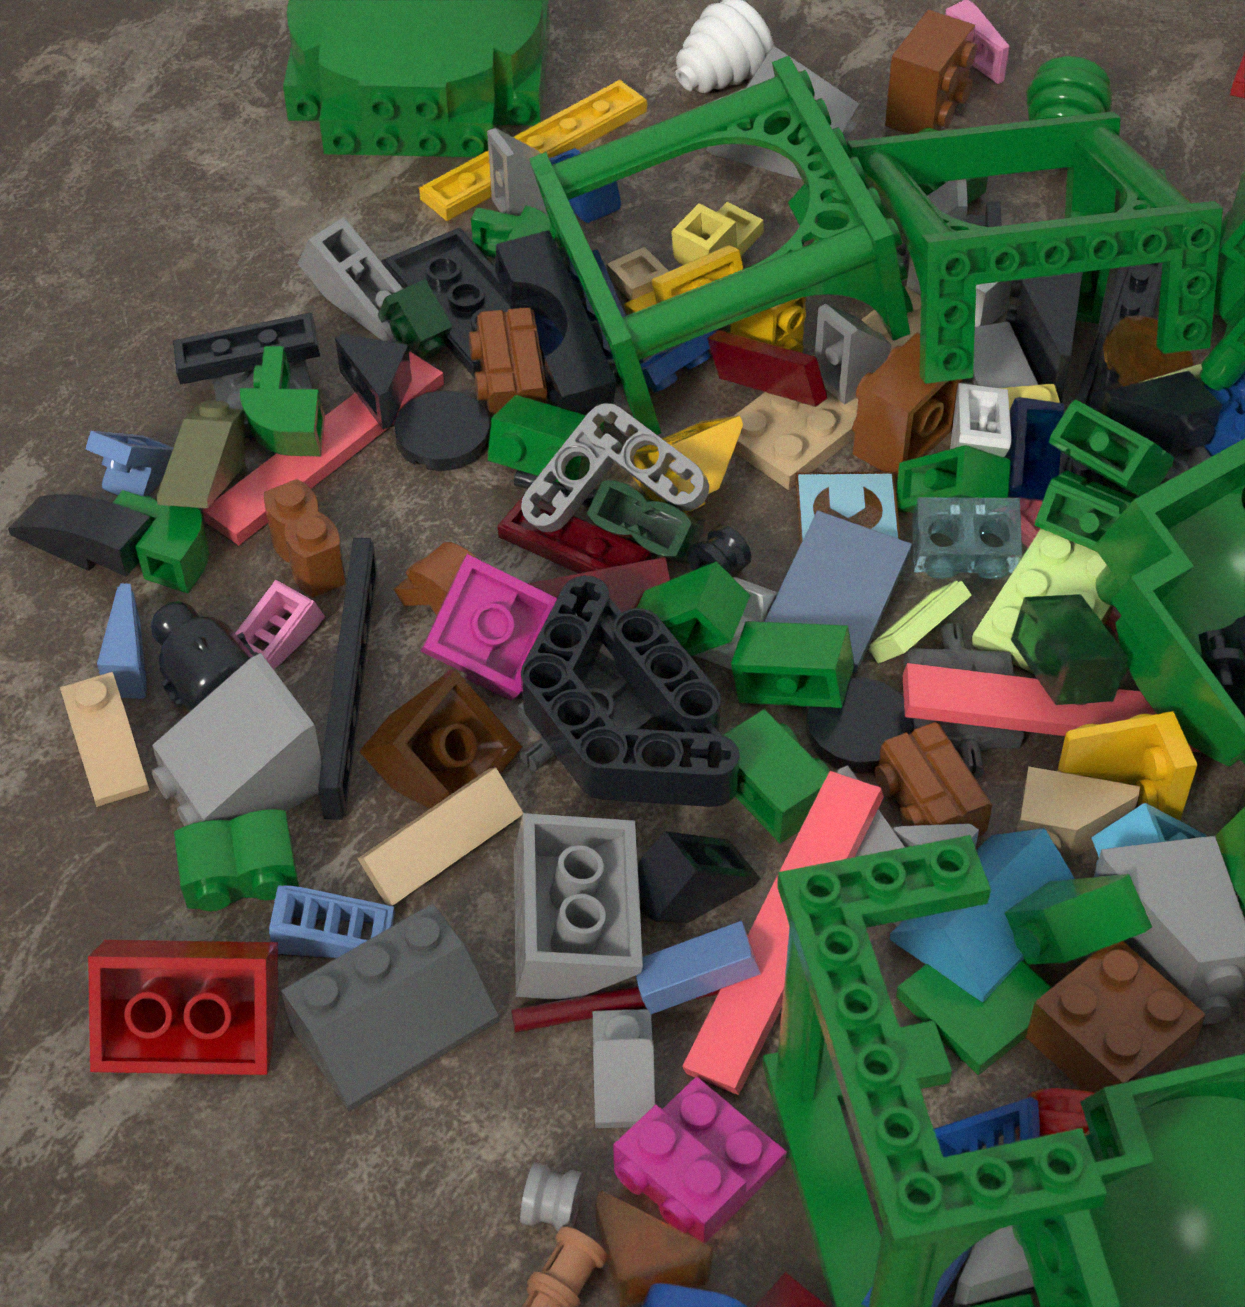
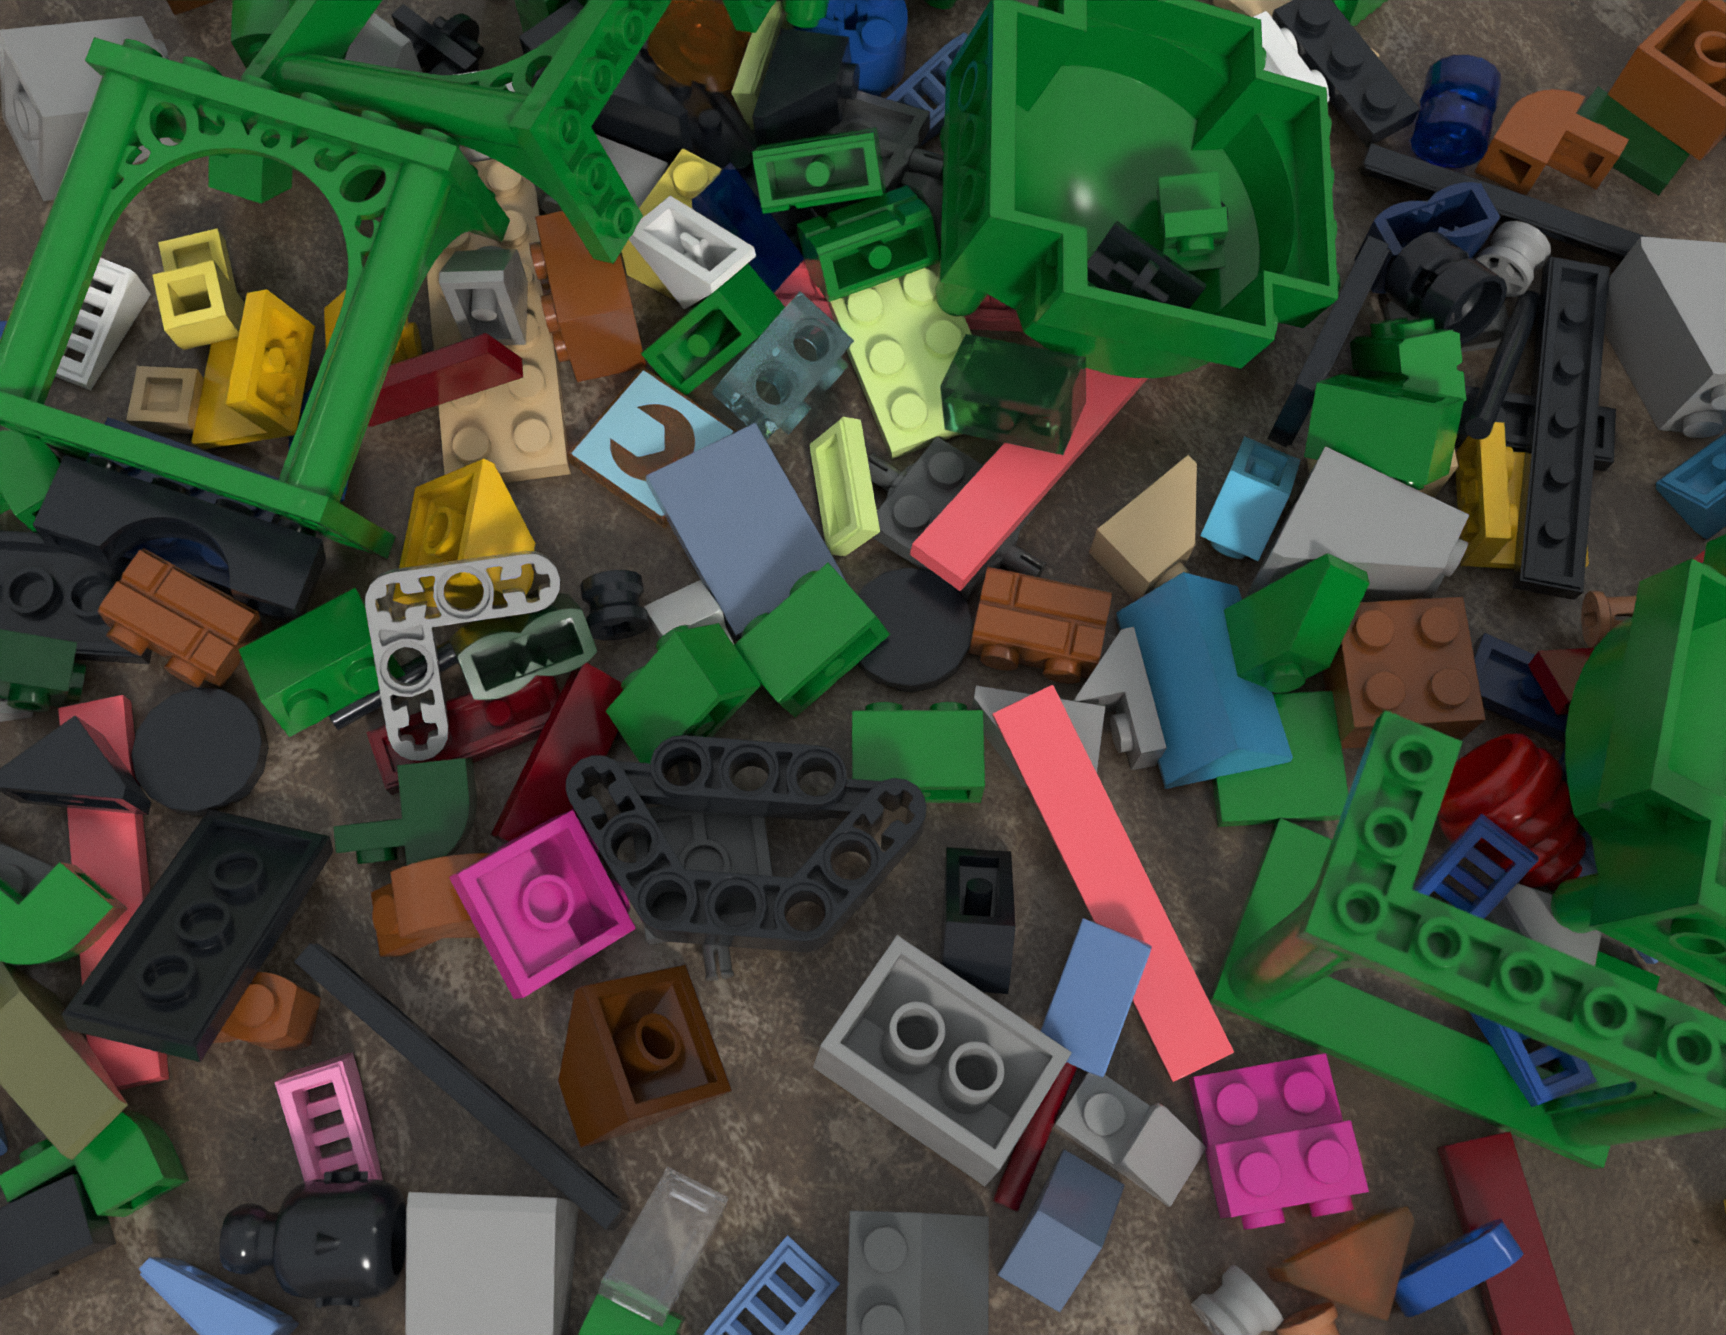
camera: 55 degrees left, 20 degrees up
(328, 830) = (663, 1246): none -> clear tile
(334, 482) = (199, 936): none -> black tile
(440, 836) = (744, 1131): tan tile -> none
(506, 542) = (435, 821): none -> dark green brick
(524, 1059) = (1062, 1231): none -> sand blue slope
(662, 208) = (119, 313): none -> white slope
(1137, 752) = (1175, 421): yellow bracket -> none

